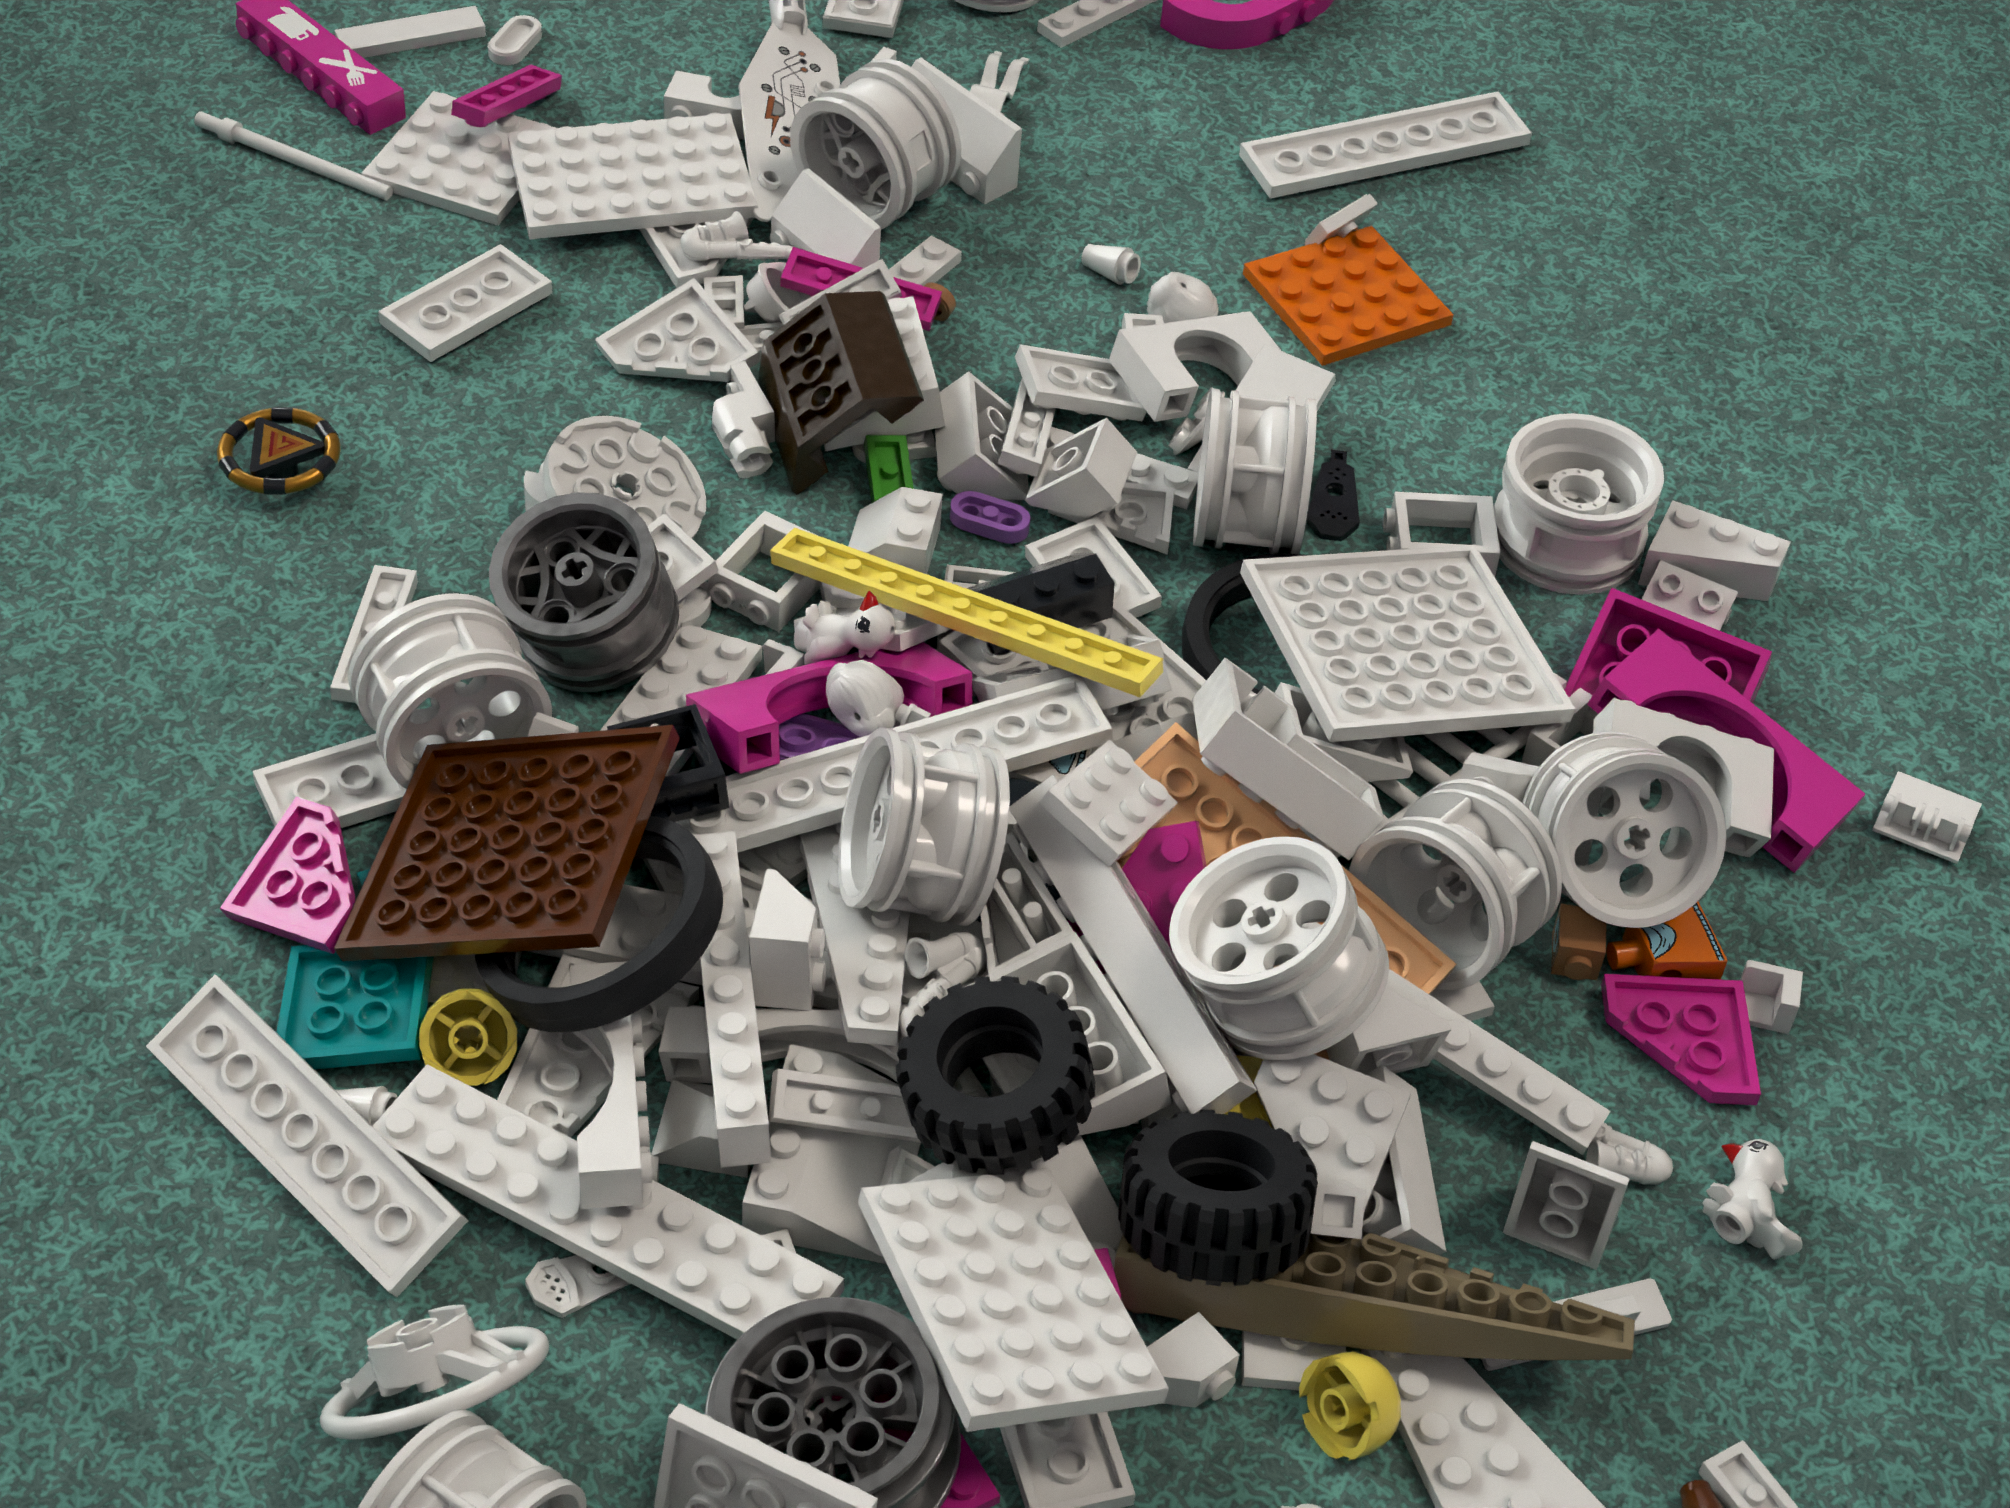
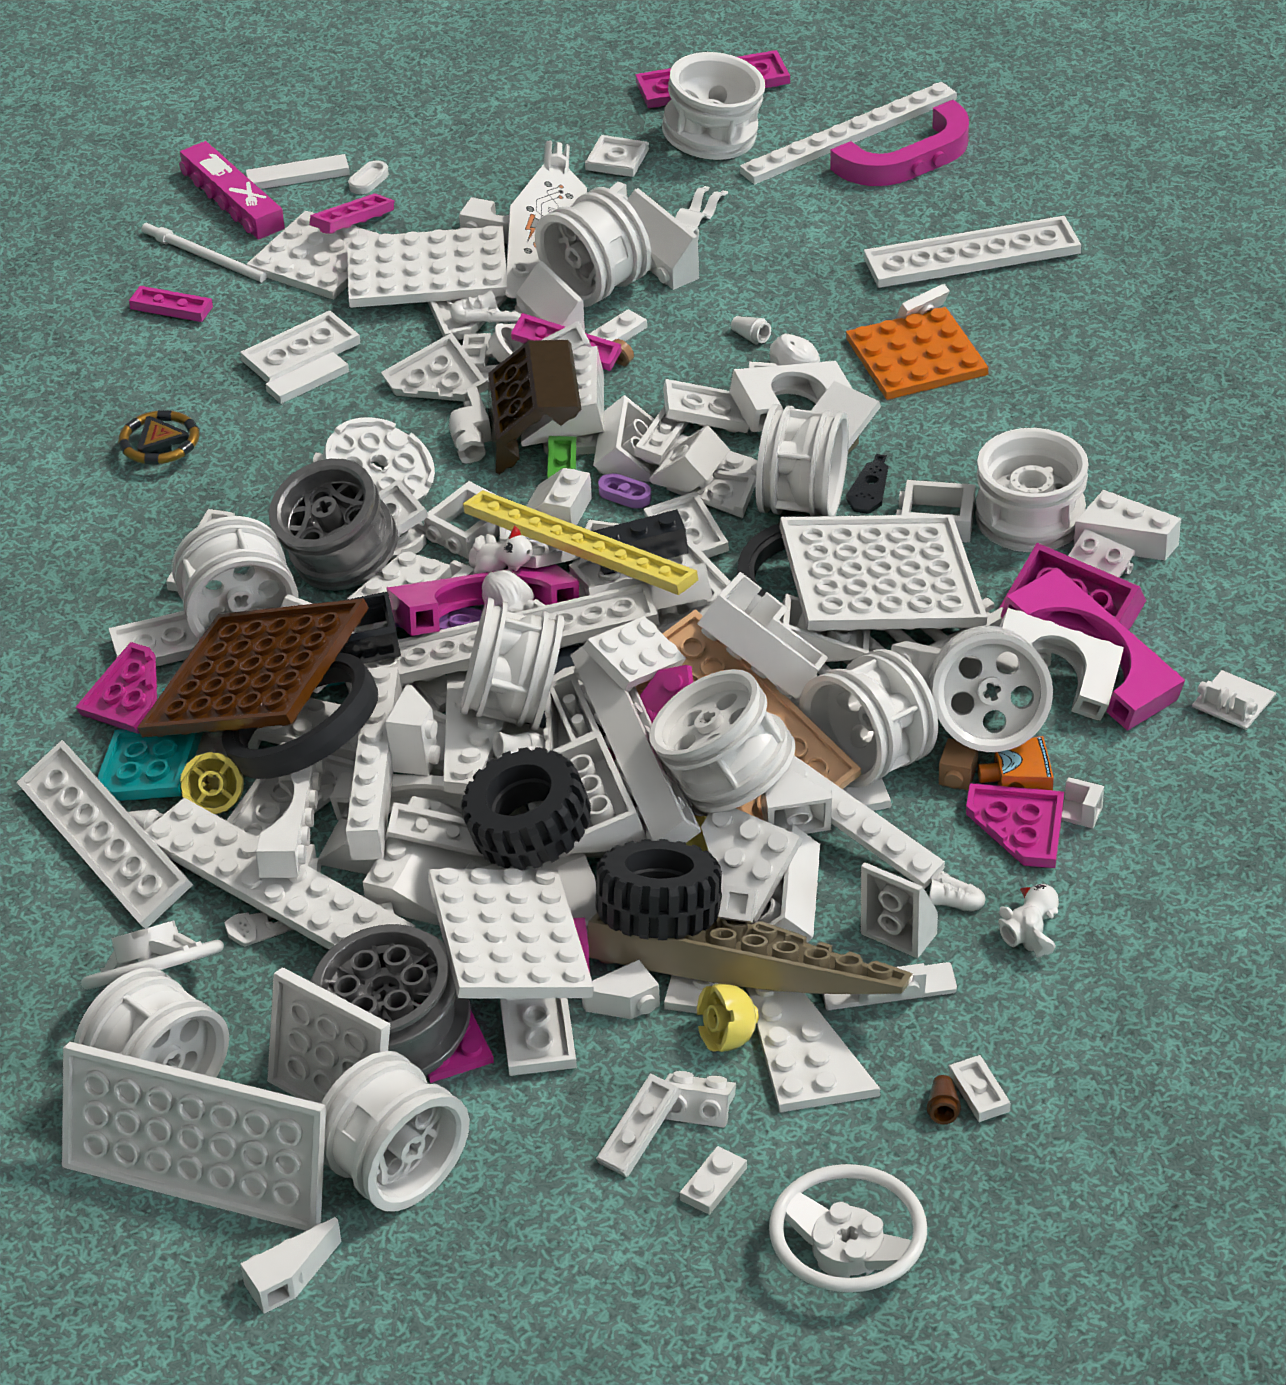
camera: 15 degrees right, 5 degrees down
(258, 236) = (171, 303): none -> dark pink plate
(483, 348) = (307, 377): none -> white tile

